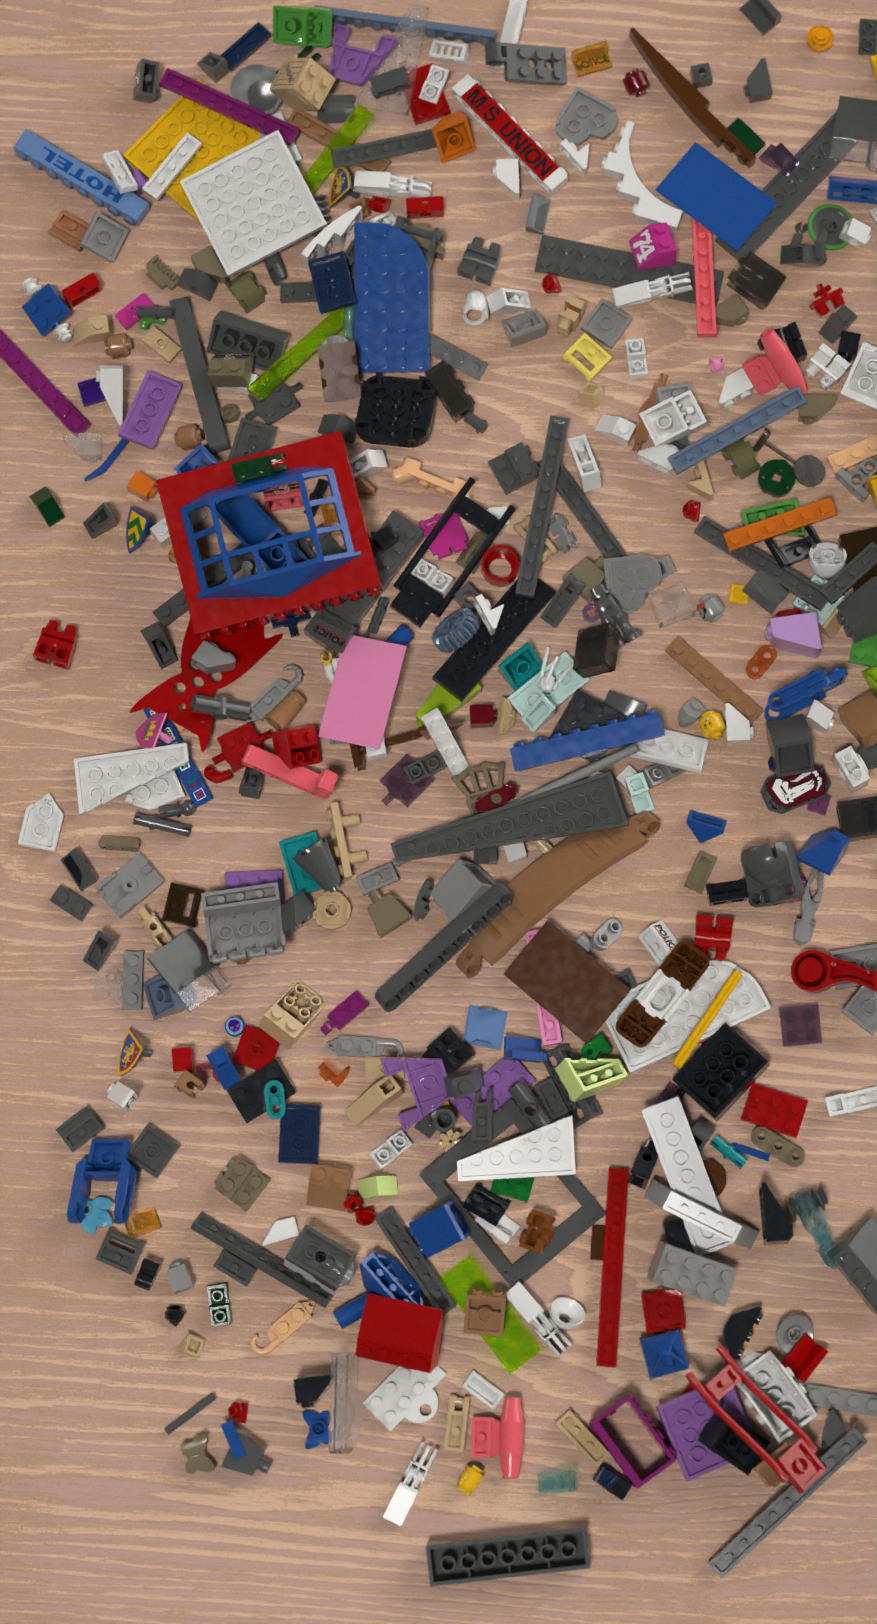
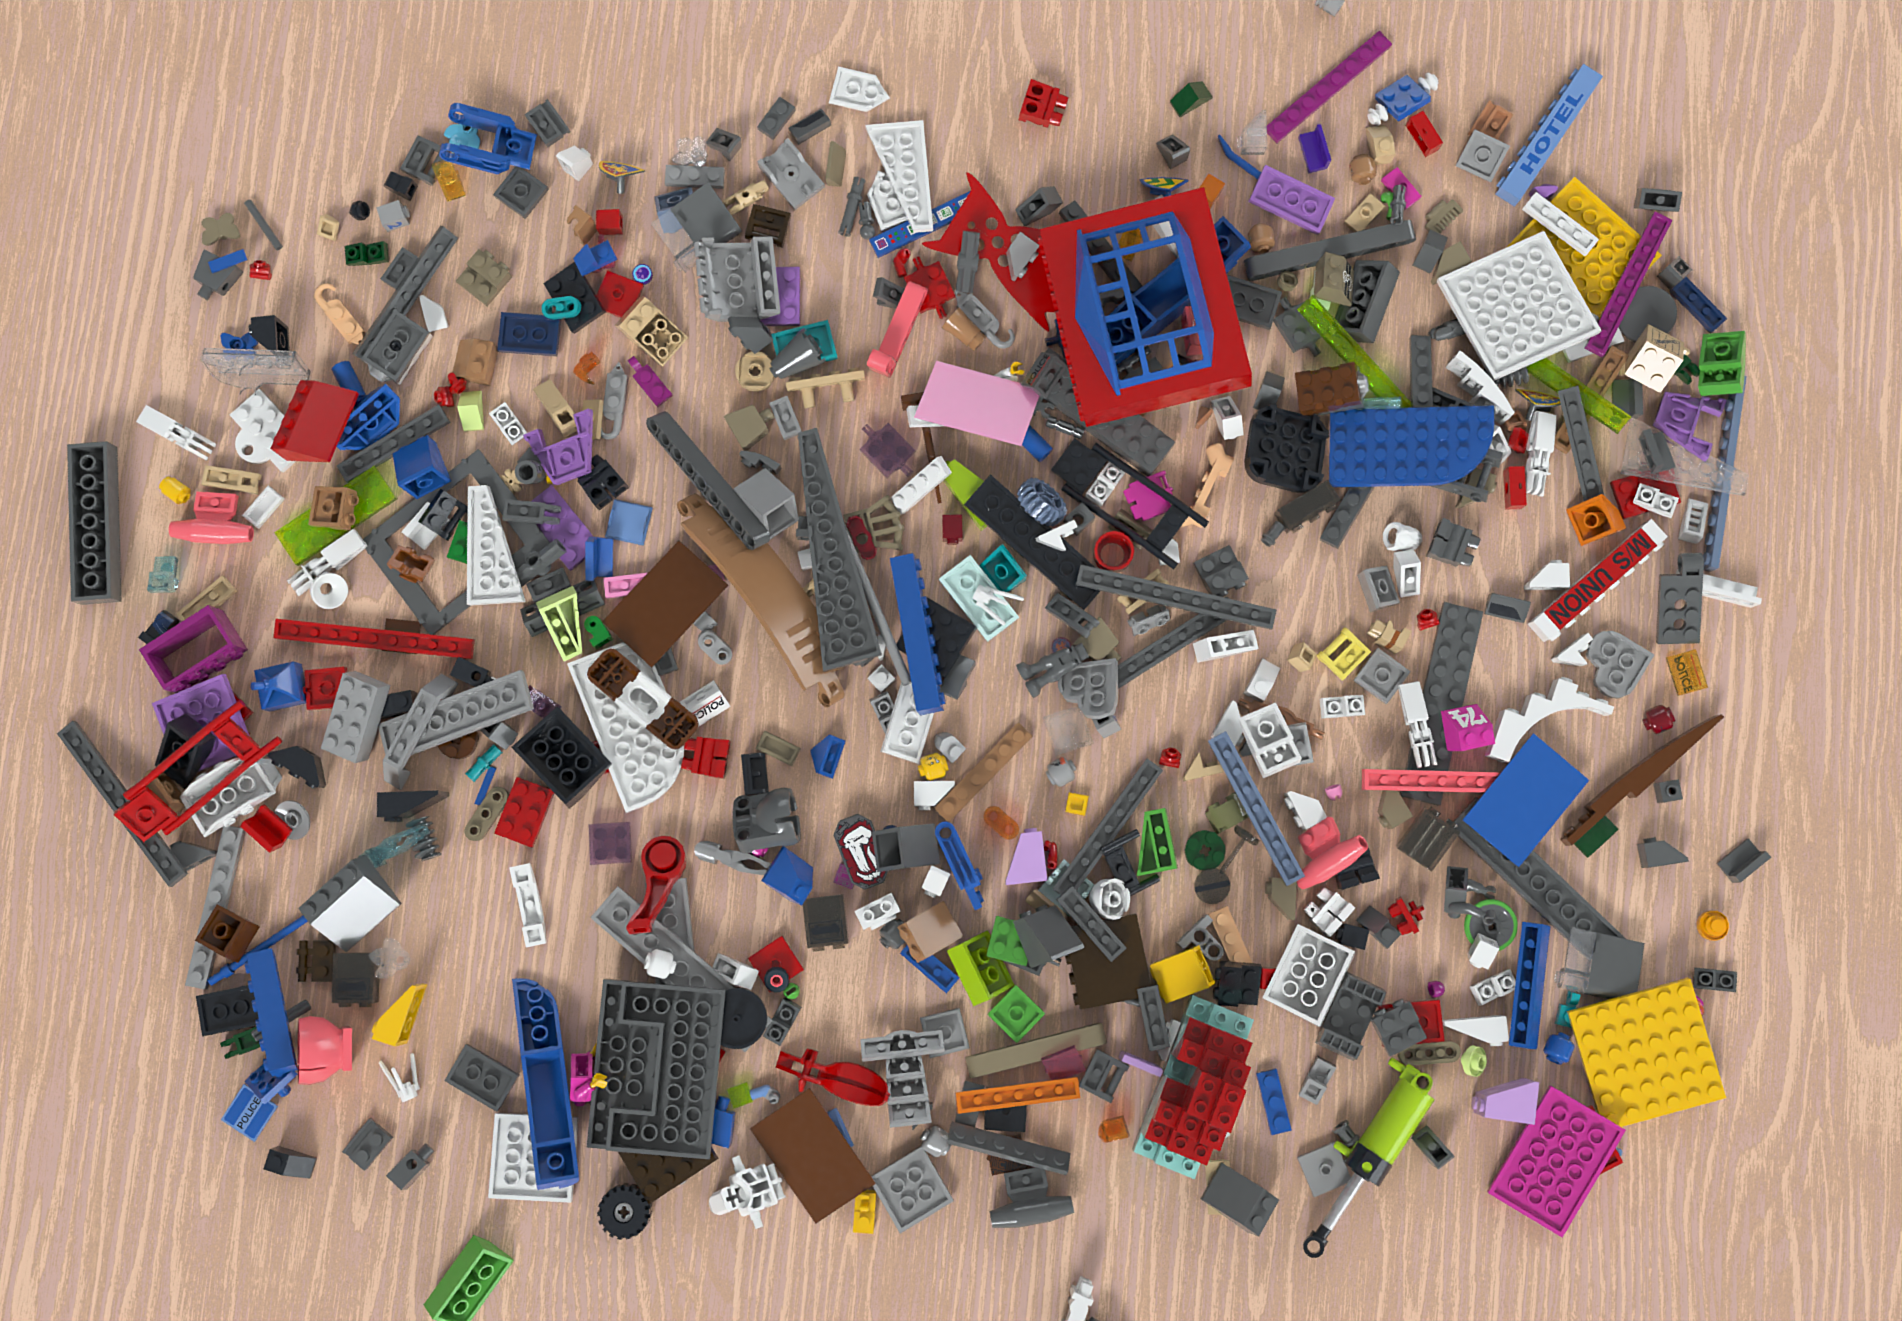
camera: 90 degrees right, 5 degrees up
(111, 384) = (1314, 157): white slope -> none
(119, 171) = (1555, 171): white tile -> none
(151, 731) = (946, 193): shield -> none
(246, 291) = (1420, 300): olive cylinder -> none
(257, 468) = (1212, 286): dark green hinge -> none
(297, 746) = (924, 337): red slope -> none
(332, 282) = (1428, 384): dark blue plate -> none
(384, 539) = (1141, 428): black panel -> none
(425, 767) = (896, 466): dark grey slope -> none
(463, 1083) = (563, 494): dark grey slope -> none
(505, 717) = (949, 552): tan plate -> none
(539, 713) = (949, 585): light aqua slope -> none
(596, 650) = (1015, 647): clear smoke brick -> none
(638, 793) = (862, 687): light aqua slope -> none
(707, 1019) = (616, 744): yellow axle -> none
(765, 591) = (1077, 830): dark grey panel -> none
(779, 159) = (1569, 872): clear purple slope -> none
(779, 524) = (1147, 848): orange plate -> none

